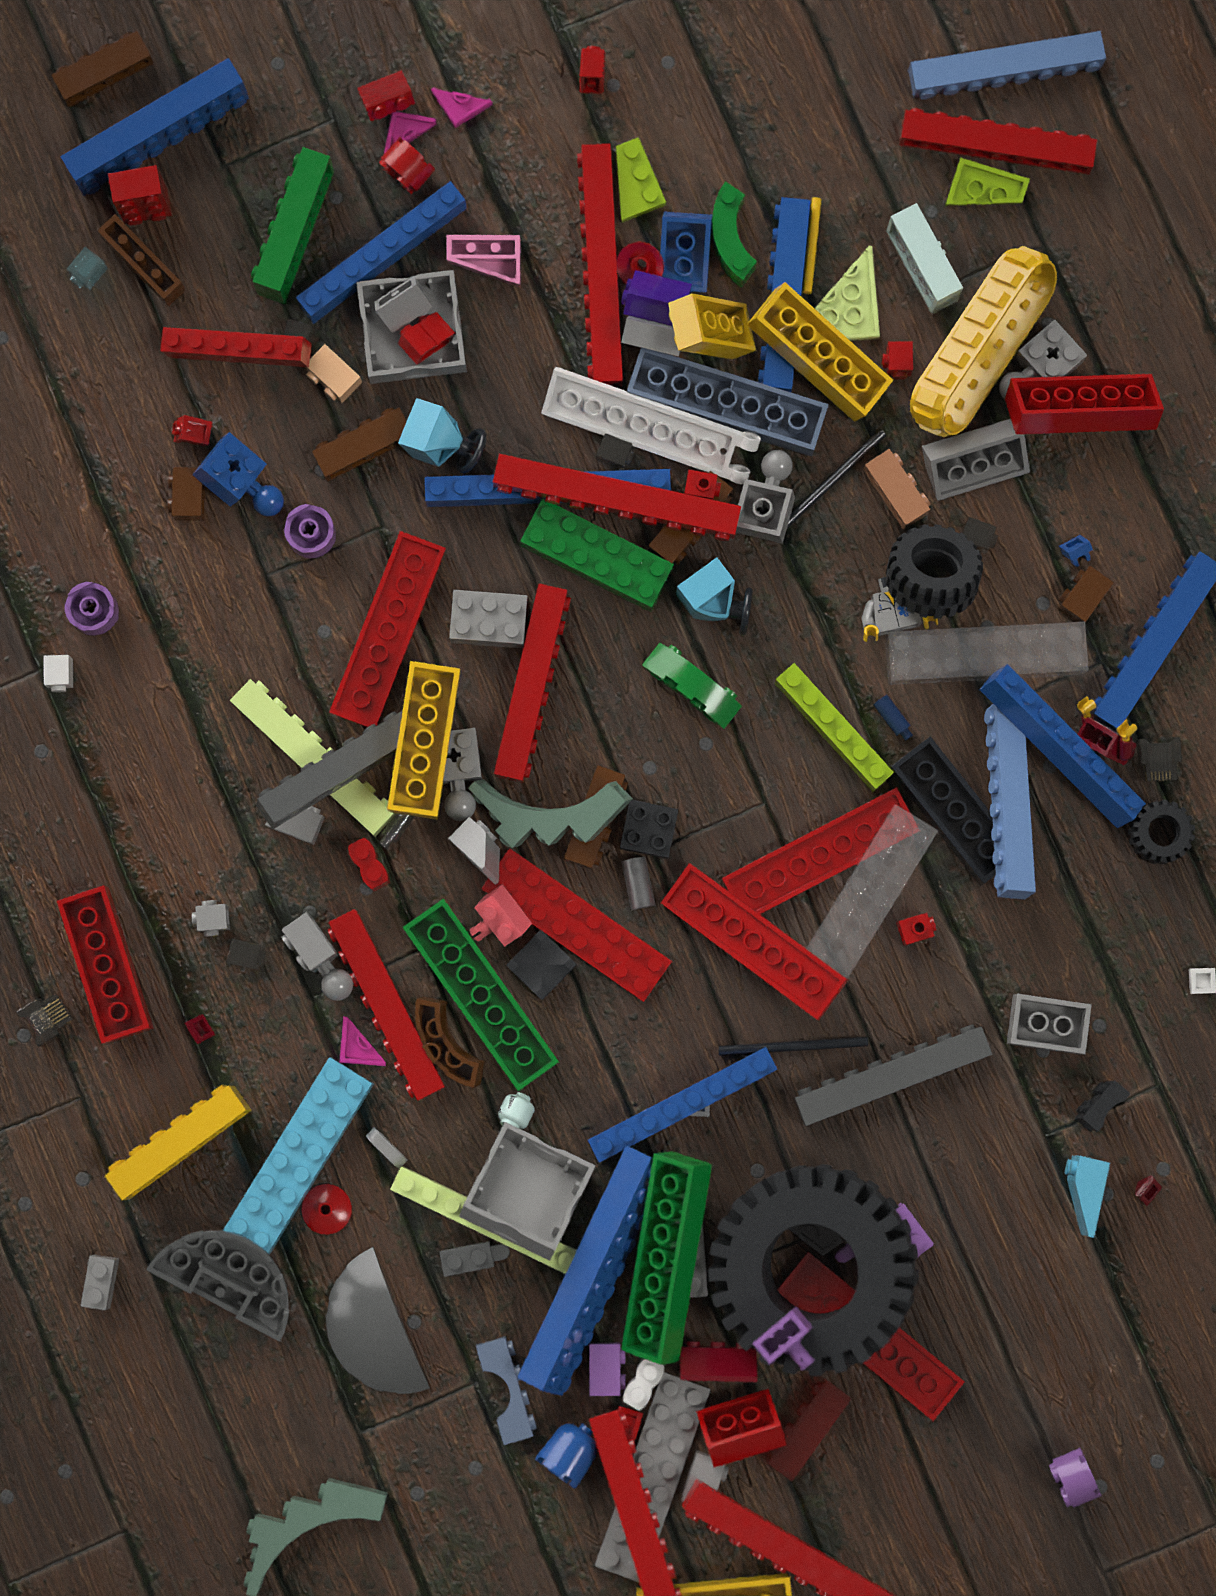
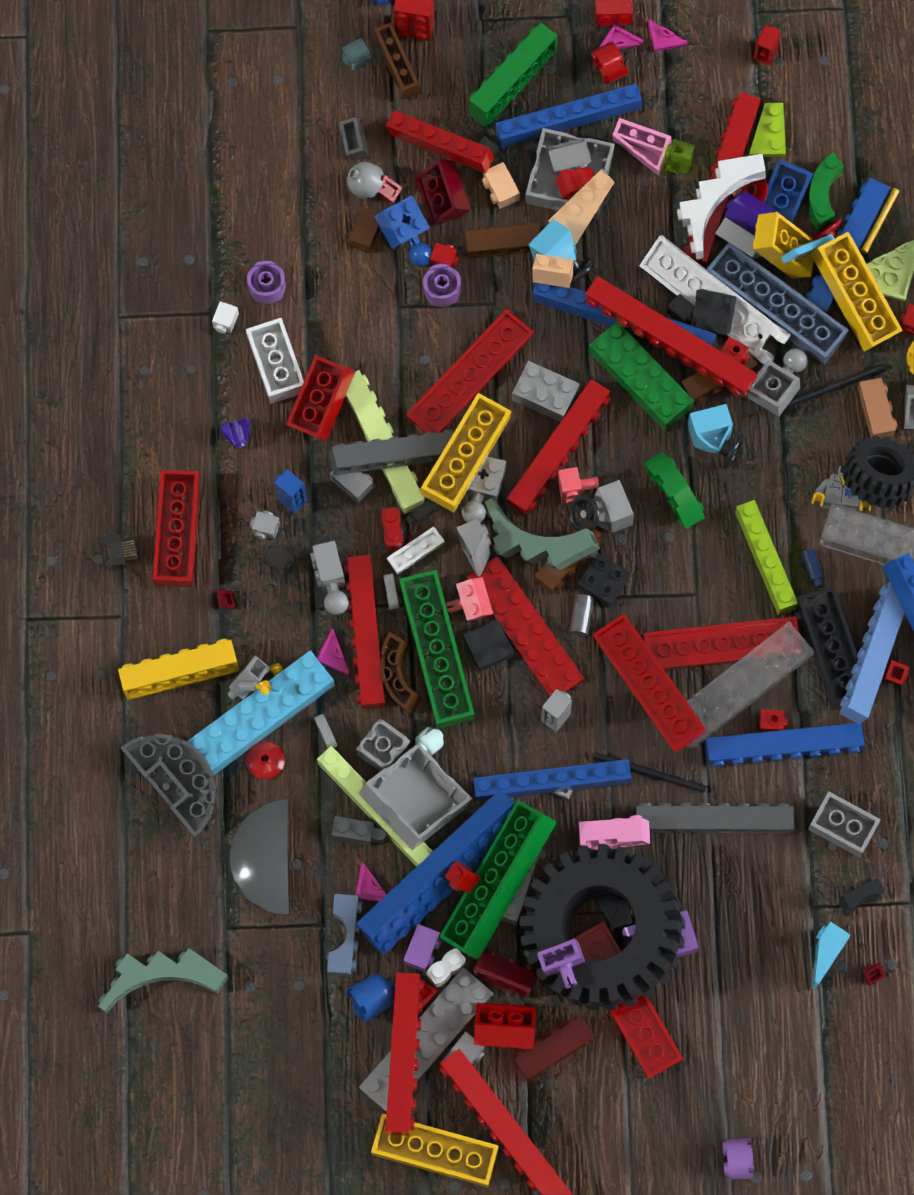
camera: 25 degrees right, 10 degrees down
(99, 1282) = (83, 747): light grey brick -> none
(128, 381) = (354, 139): none -> flat silver brick
(130, 813) = (237, 432): none -> dark purple brick
(142, 704) = (275, 360): none -> white brick
(162, 430) = (365, 180): none -> light grey cylinder
(217, 734) = (320, 398): none -> red brick
(226, 867) = (290, 491): none -> blue brick
(264, 409) = (442, 192): none -> dark red slope
(270, 1117) = (249, 678): none -> light grey torso
(298, 491) = (444, 255): none -> red brick
(397, 942) = (391, 591): none -> light grey beam
(407, 879) = (415, 550): none -> white plate
(441, 465) = (552, 270): none -> light nougat brick
(444, 368) = (583, 205): none -> light nougat wing
(463, 1142) = (382, 745): none -> light grey piece
(513, 1318) = (368, 887): none -> dark pink tile
(538, 257) = (679, 157): none -> clear neon green brick
(568, 728) = (572, 486): none -> coral brick
(614, 258) = (730, 176): none -> white arch
(621, 742) = (607, 509): none -> light grey piece
(623, 1272) = (462, 877): none -> red brick
(656, 442) = (713, 311): none -> black brick
(656, 1018) = (556, 710): none -> light grey brick
(743, 321) = (805, 249): none -> medium azure tile
(754, 284) = (830, 229): none -> red dish
(782, 1143) = (615, 832): none -> bright pink wedge
(939, 951) = (785, 743): none -> blue brick
(1042, 813) = (895, 672): none -> red brick

